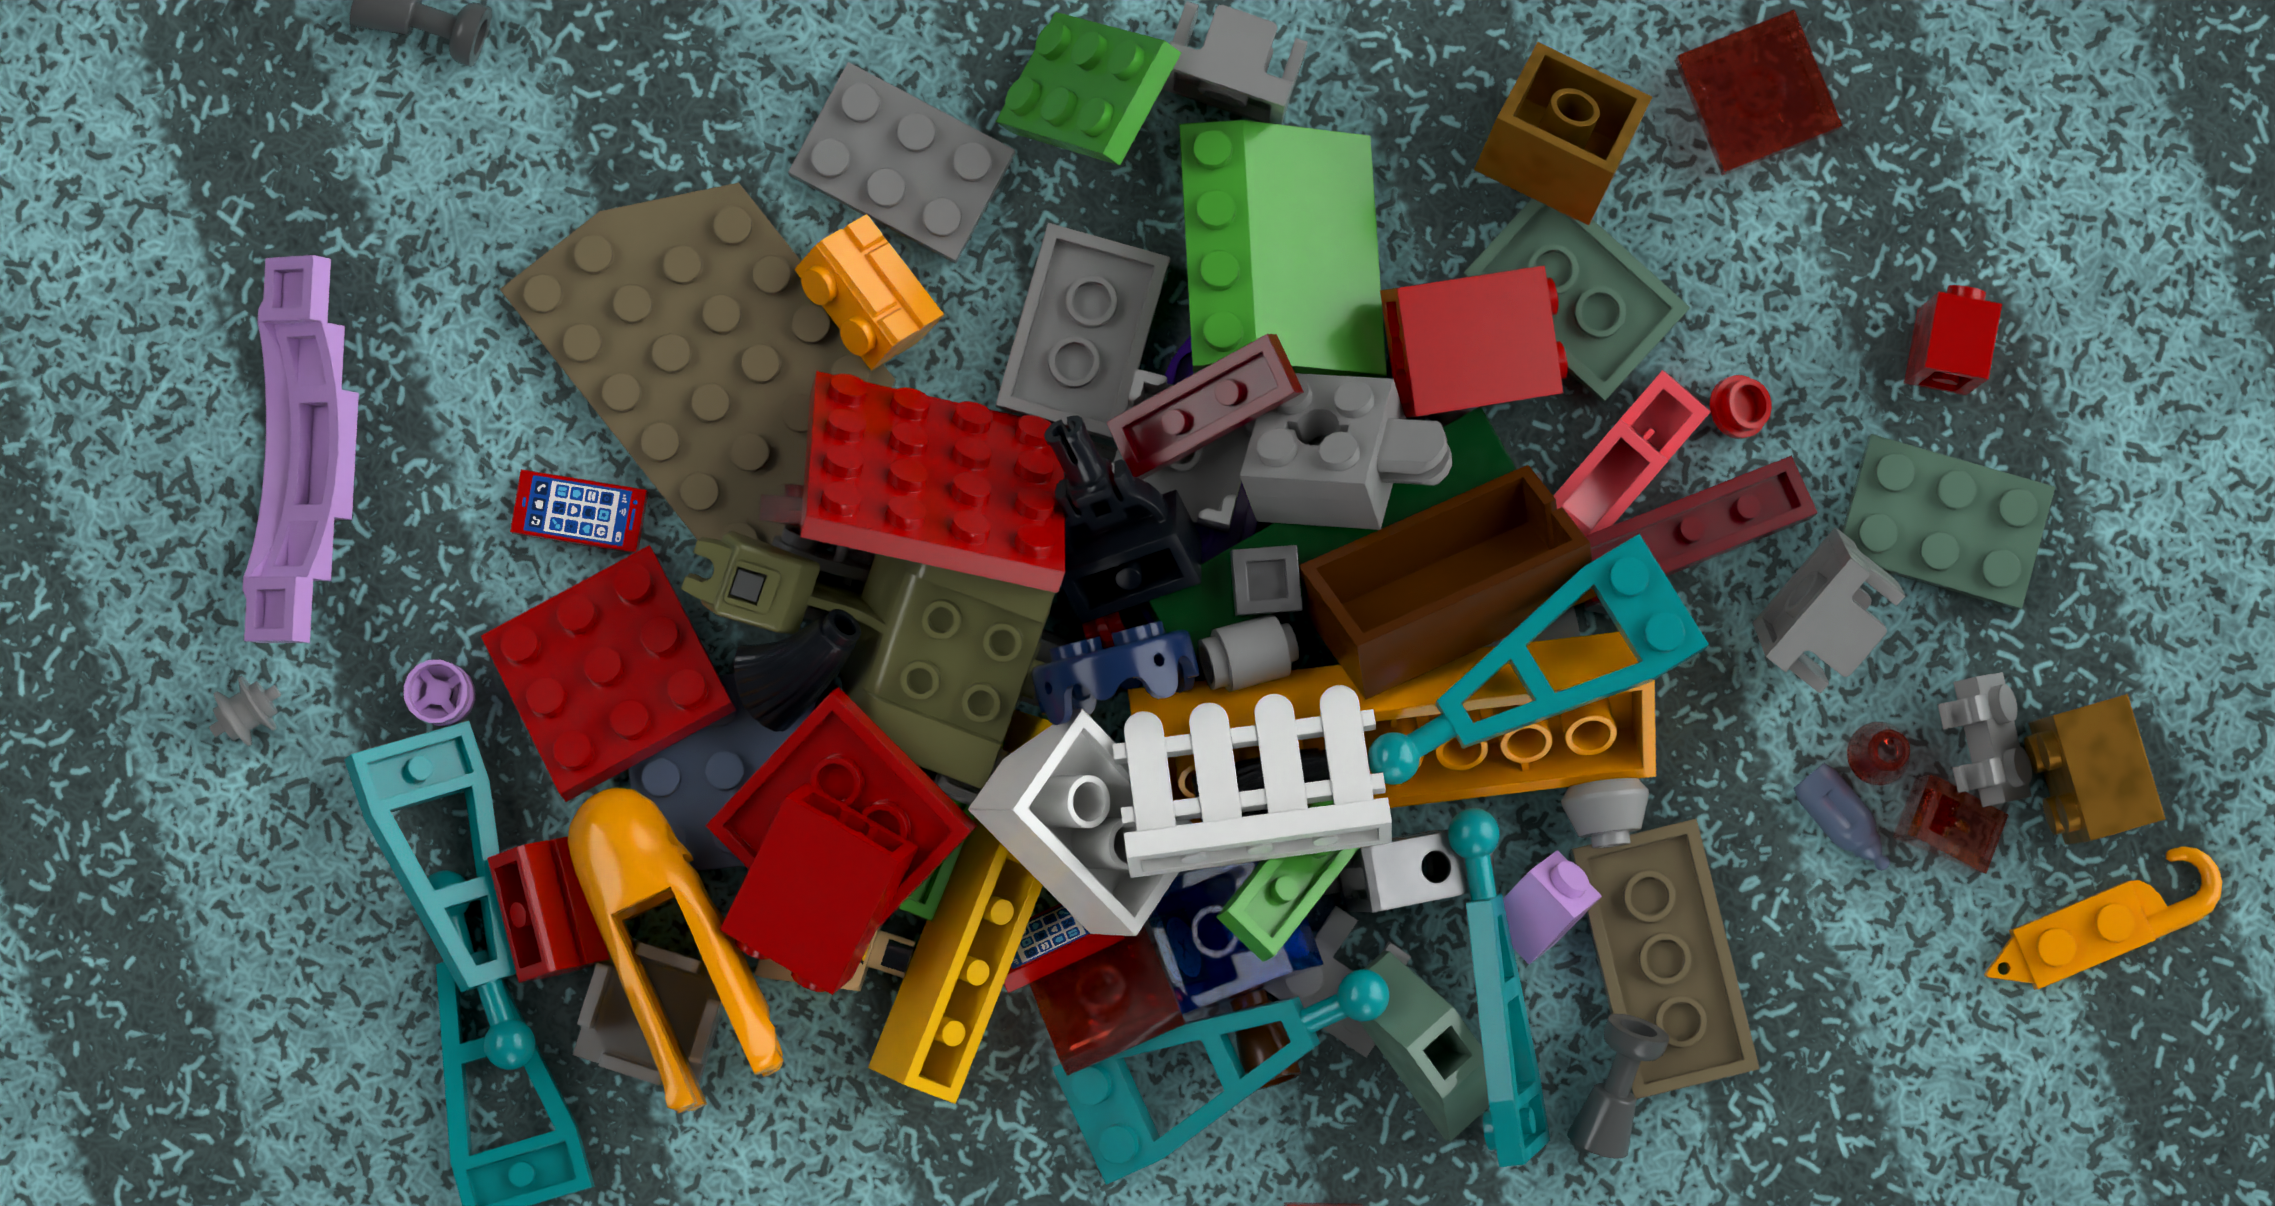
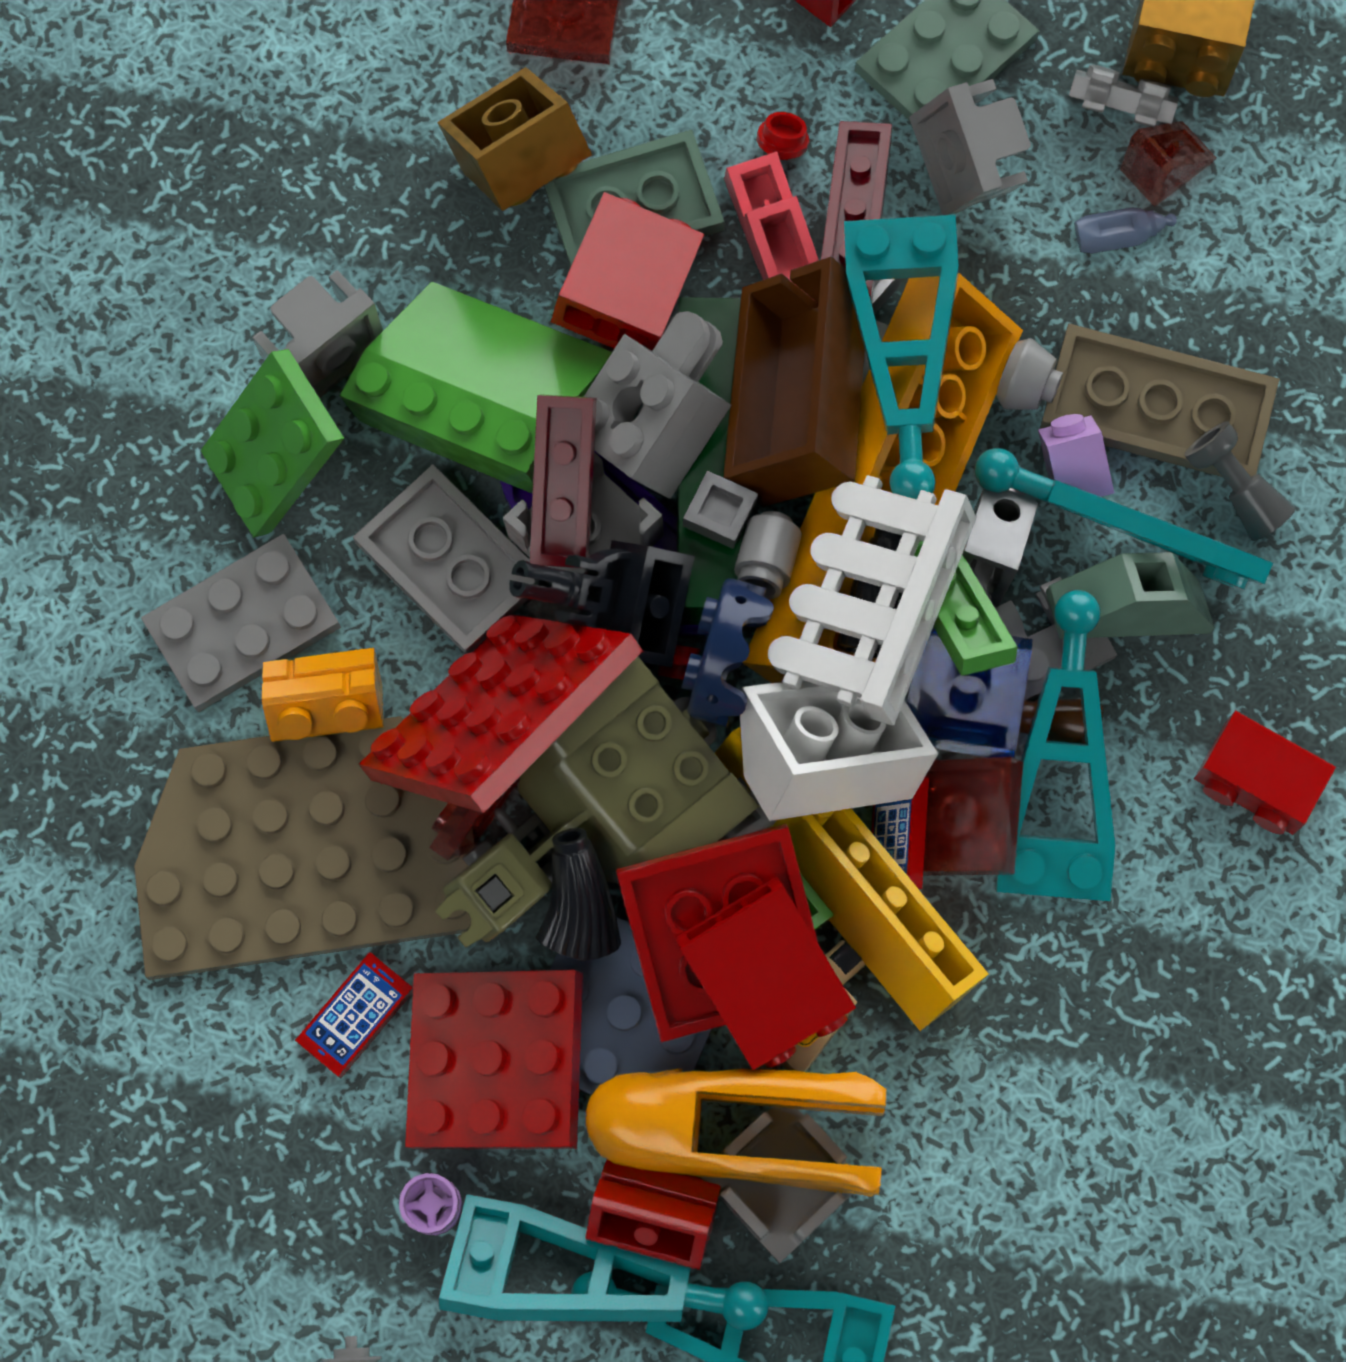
camera: 55 degrees left, 10 degrees down
(306, 450) = (172, 1201): lavender piece -> none
(1864, 756) = (1091, 173): clear red cone -> none
(2104, 926) = (1298, 101): light orange plate -> none

